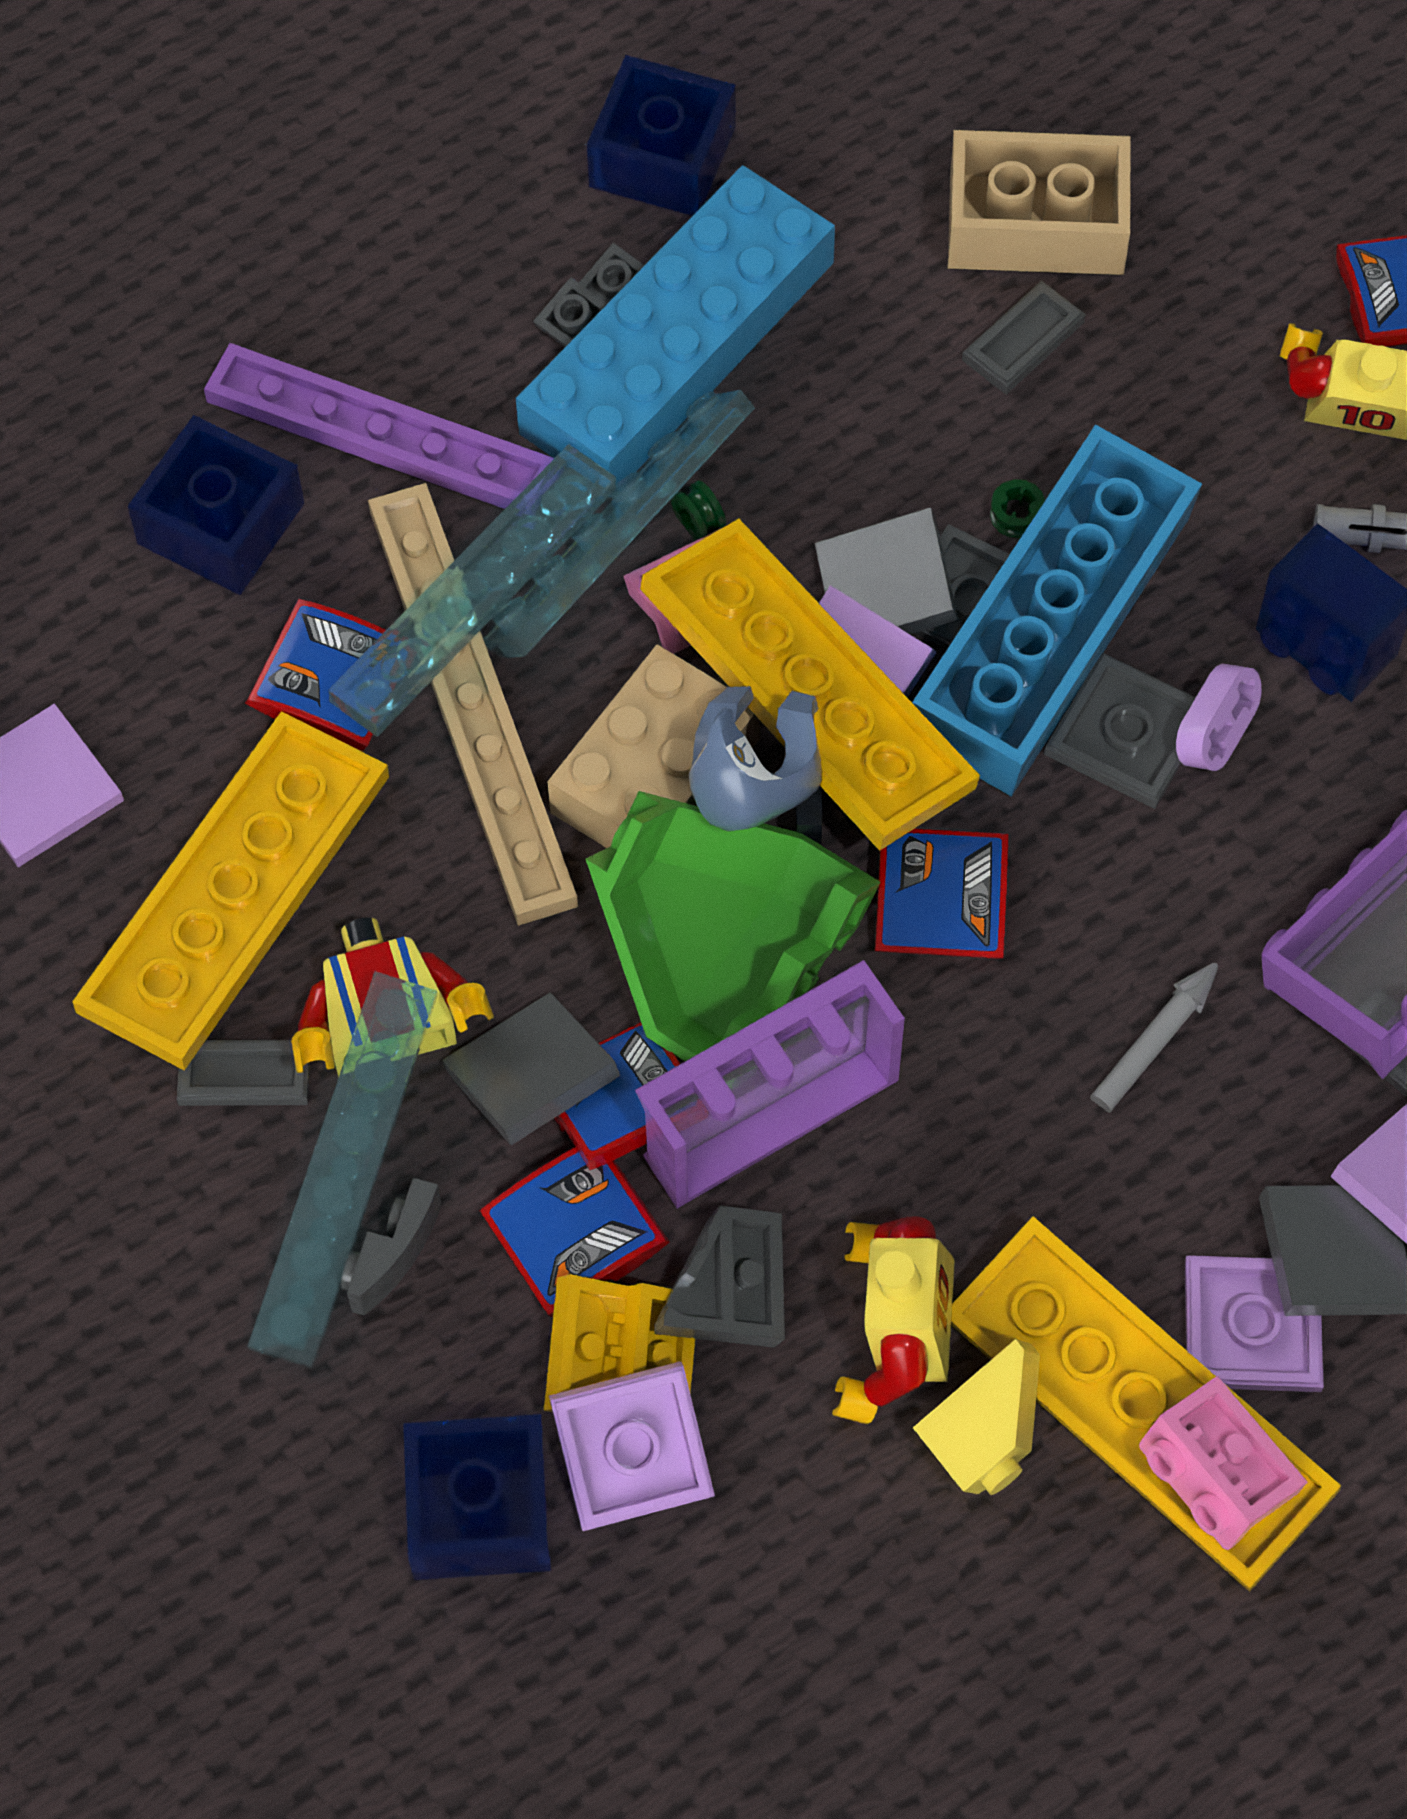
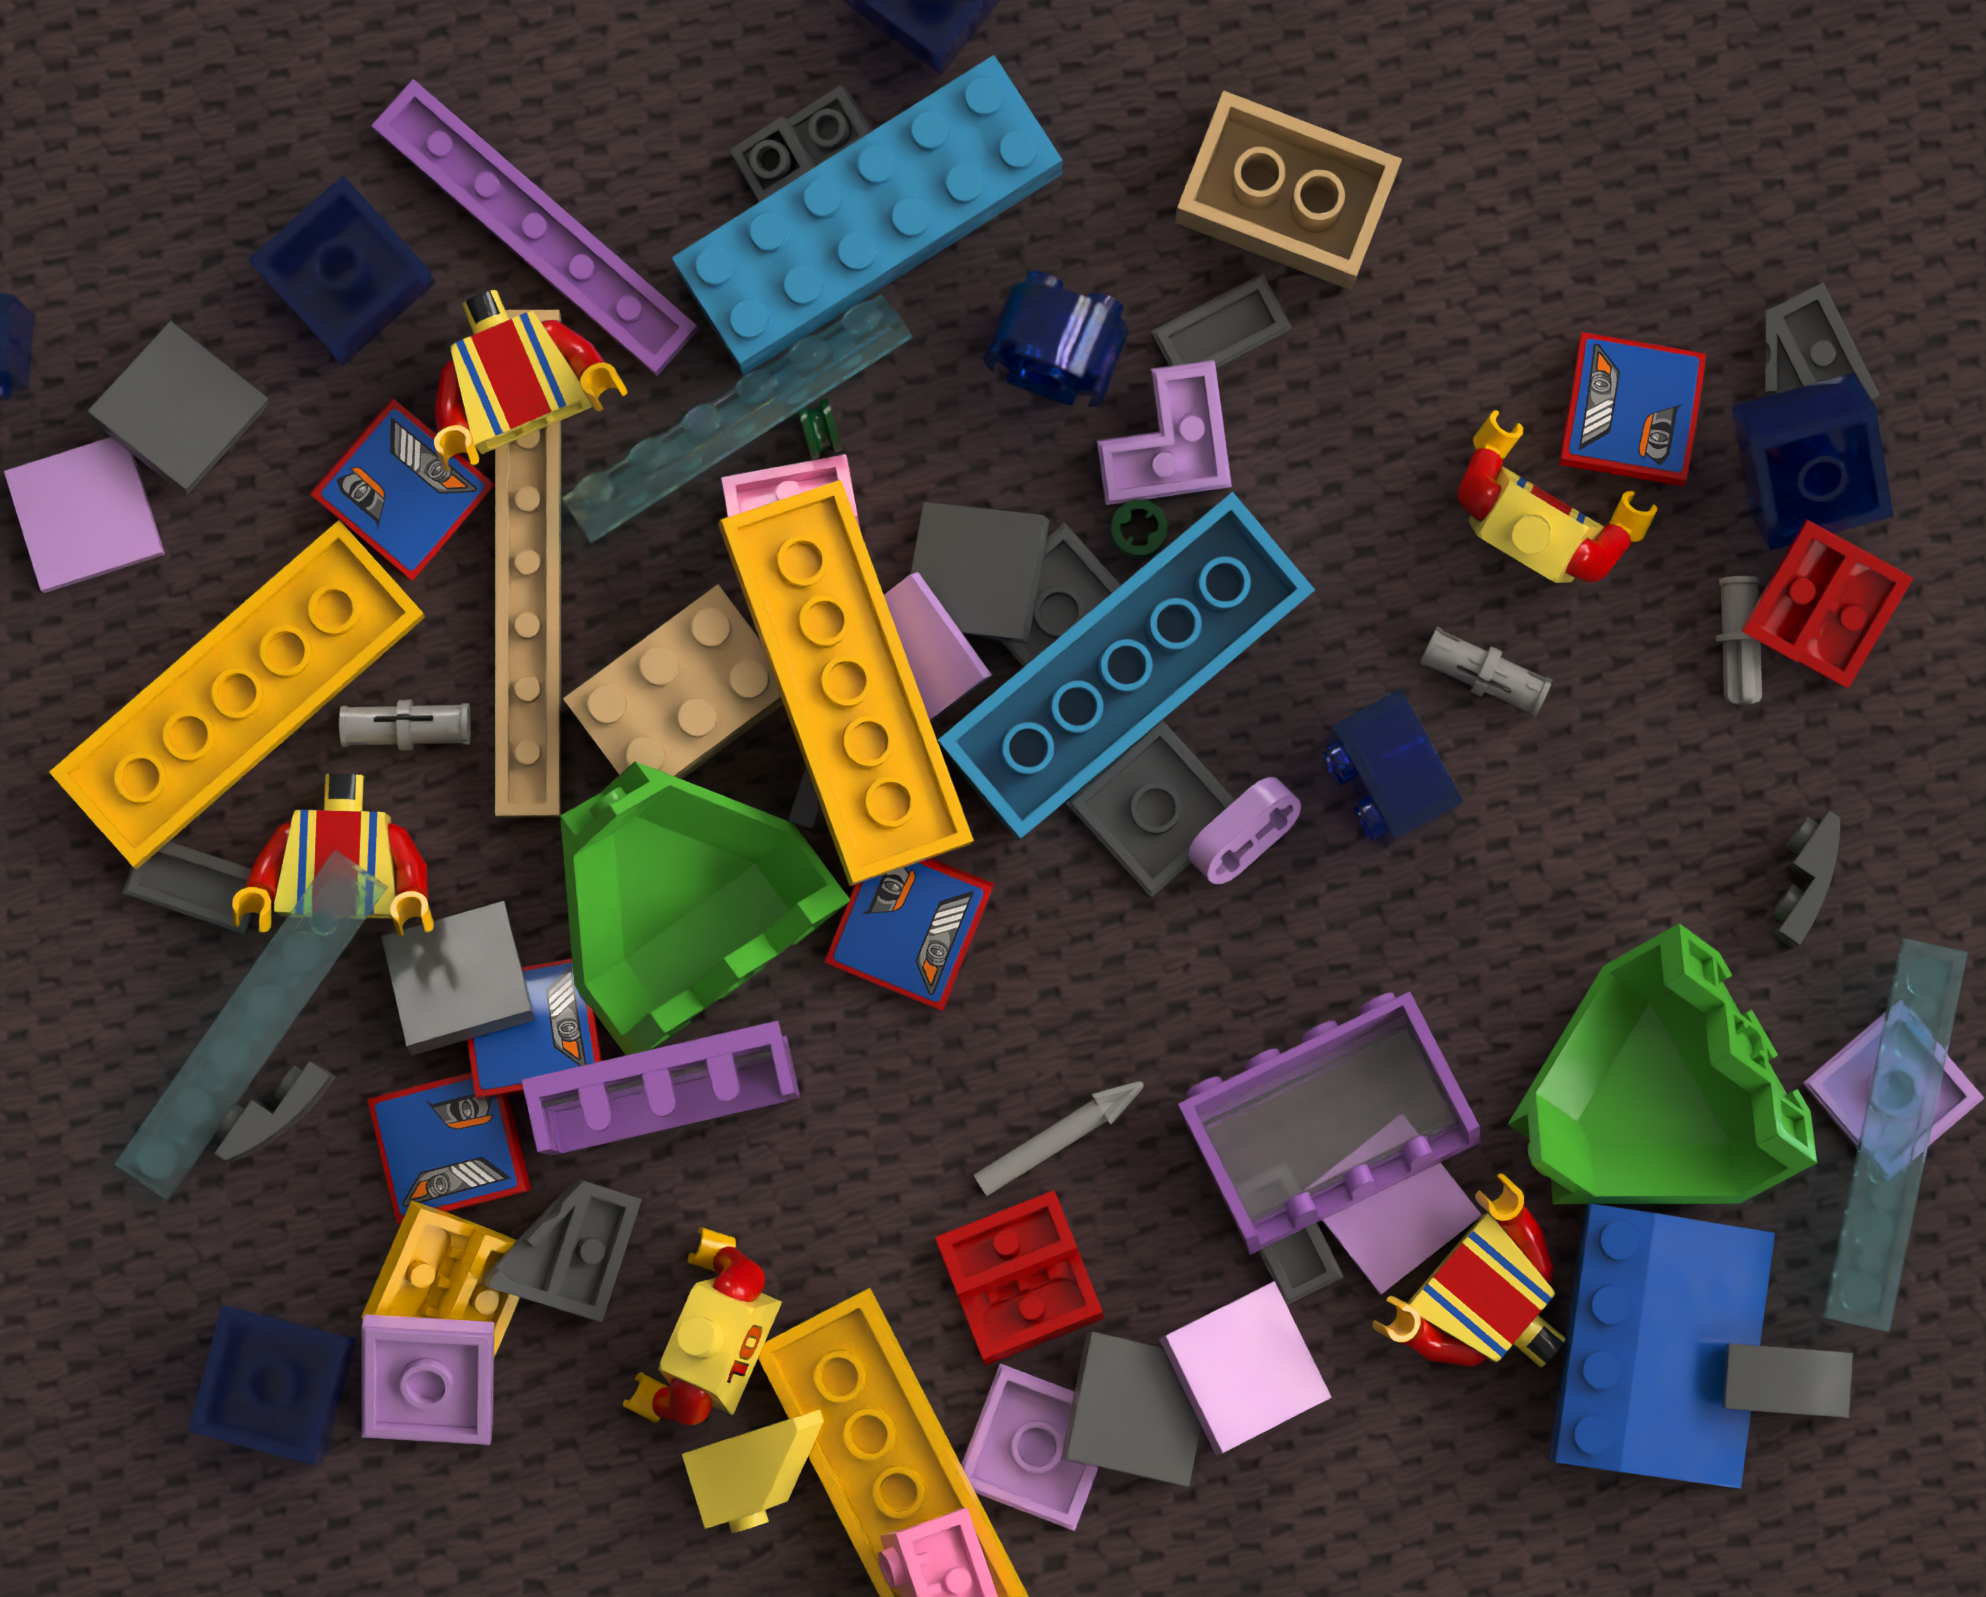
camera: 20 degrees right, 20 degrees up
(98, 668) = (177, 408): none -> dark grey tile
(402, 868) = (405, 725): none -> light grey pin
(409, 531) = (513, 379): none -> torso
(472, 590) = (563, 457): clear light blue plate -> none
(729, 778) = (733, 785): sand blue piece -> none
(886, 369) = (1057, 340): none -> clear blue brick
(1031, 432) = (1186, 451): none -> lavender tile
(1173, 1173) = (1020, 1277): none -> red slope

